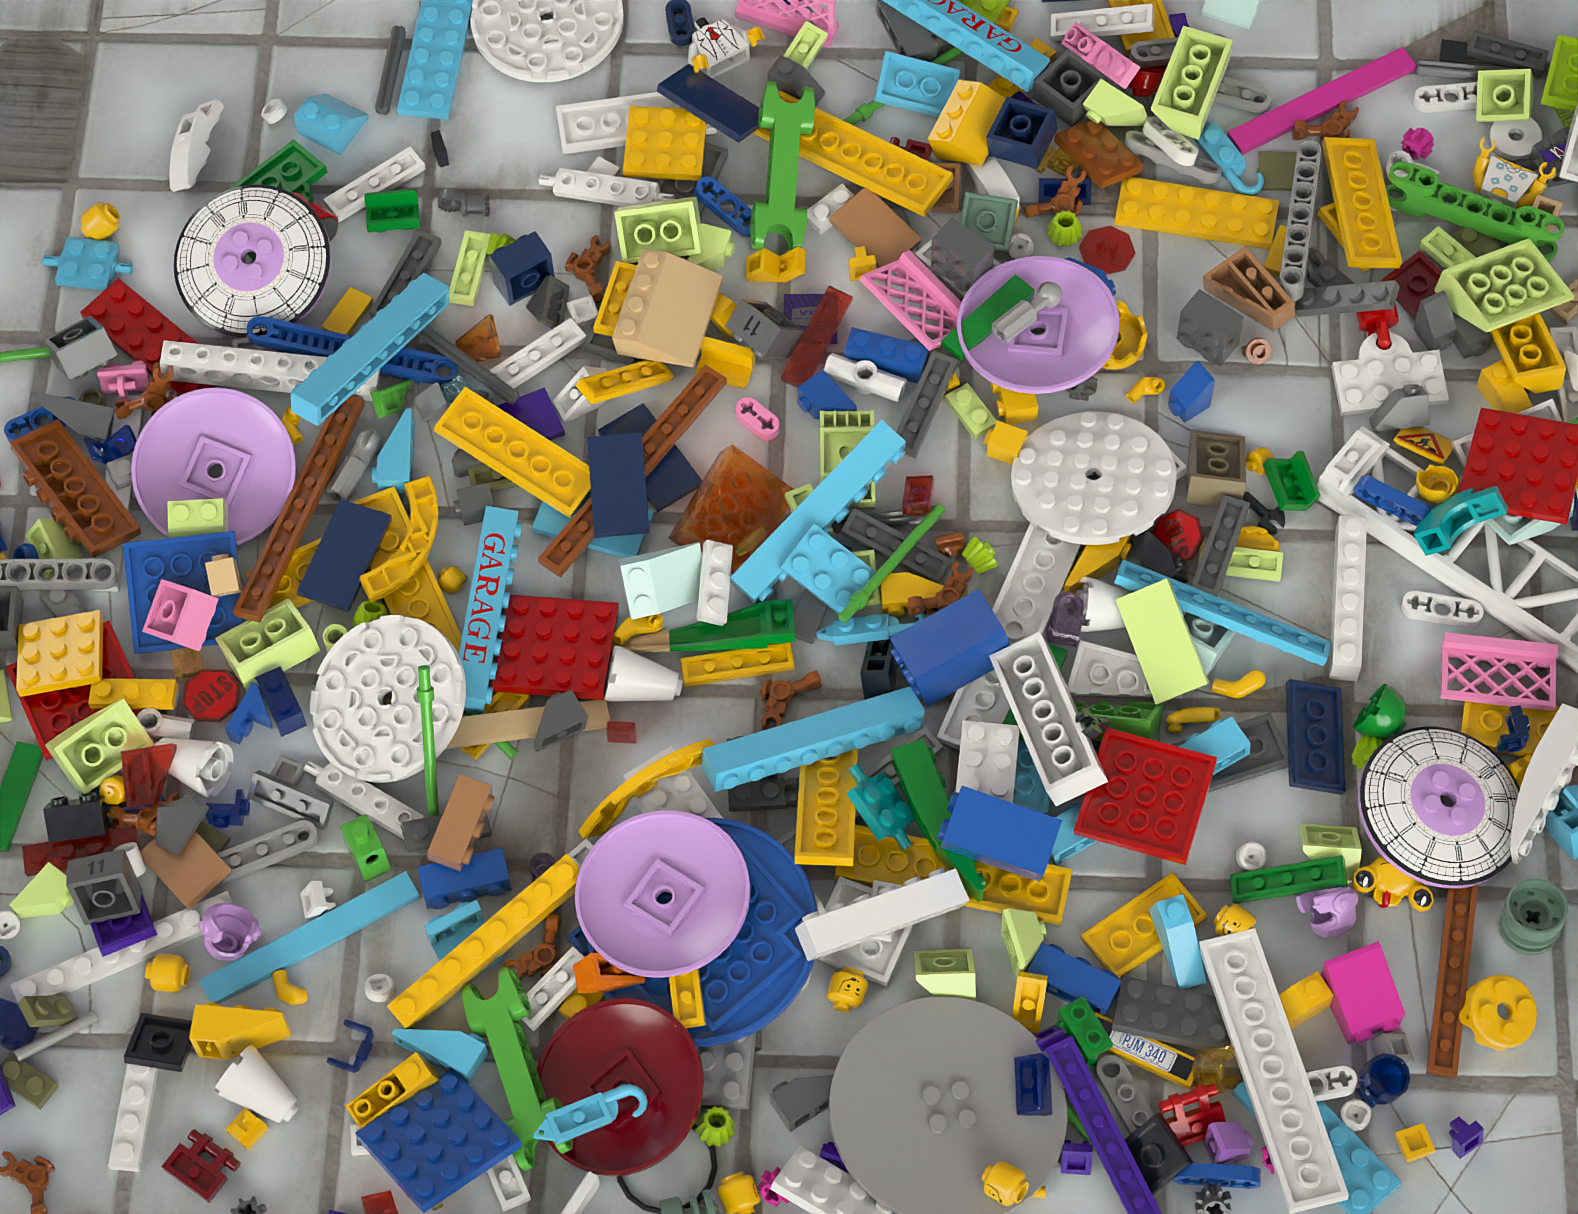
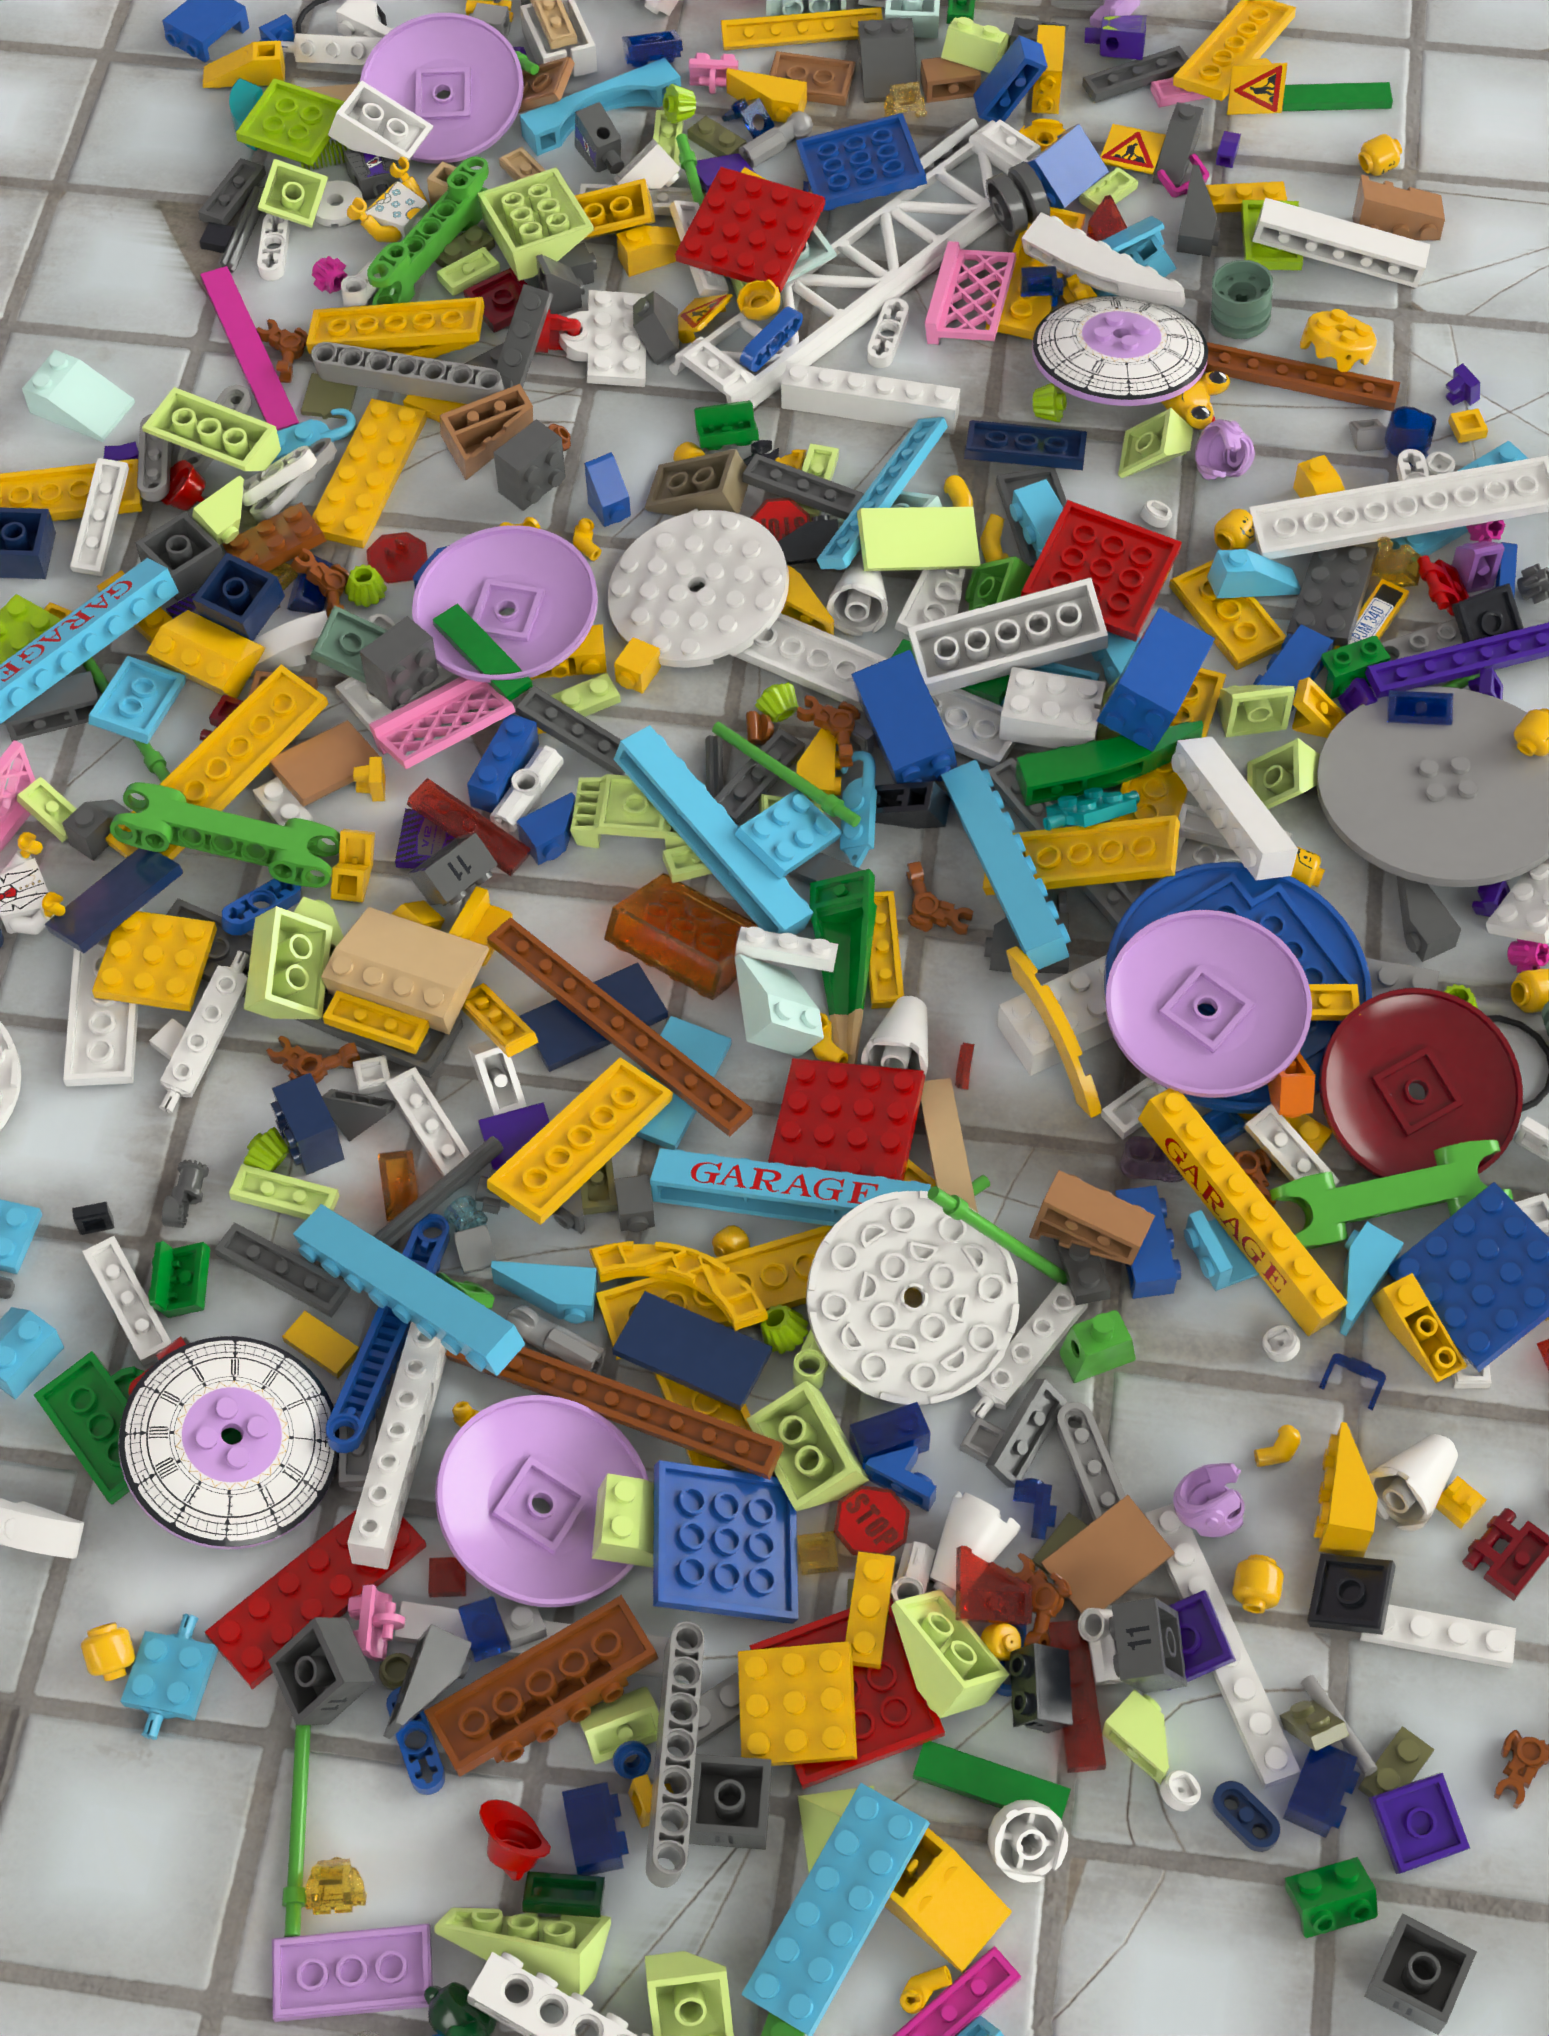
camera: 85 degrees left, 5 degrees down
(152, 398) = (418, 1576): dark orange piece -> none
(177, 823) = (1062, 1554): dark grey slope -> none
(180, 615) = (764, 1543): bright pink slope -> none
(223, 576) = (723, 1477): tan brick -> none
(309, 938) = (1212, 1421): medium azure tile -> none
(314, 900) = (1165, 1409): white tile -> none
(561, 719) = (956, 1117): dark grey slope -> none
(587, 1114) = (1467, 1107): medium azure plate -> none
(618, 485) = (643, 1034): dark blue tile -> none
(751, 541) = (734, 909): clear yellow plate -> none
(755, 421) = (562, 906): bright pink beam -> none
(918, 495) = (699, 746): clear red plate -> none
(1025, 313) = (495, 603): light grey piece -> none
(1065, 623) = (870, 629): clear purple piece -> none
(1093, 724) = (1031, 586): black bar -> none
(1100, 55) = (155, 511): bright pink slope -> none
(1288, 879) = (1192, 479): green tile -> none
(1363, 993) = (1313, 430): dark pink slope -> none
(1382, 715) = (1009, 385): green cylinder -> none
(1455, 515) = (798, 282): teal arch -> none

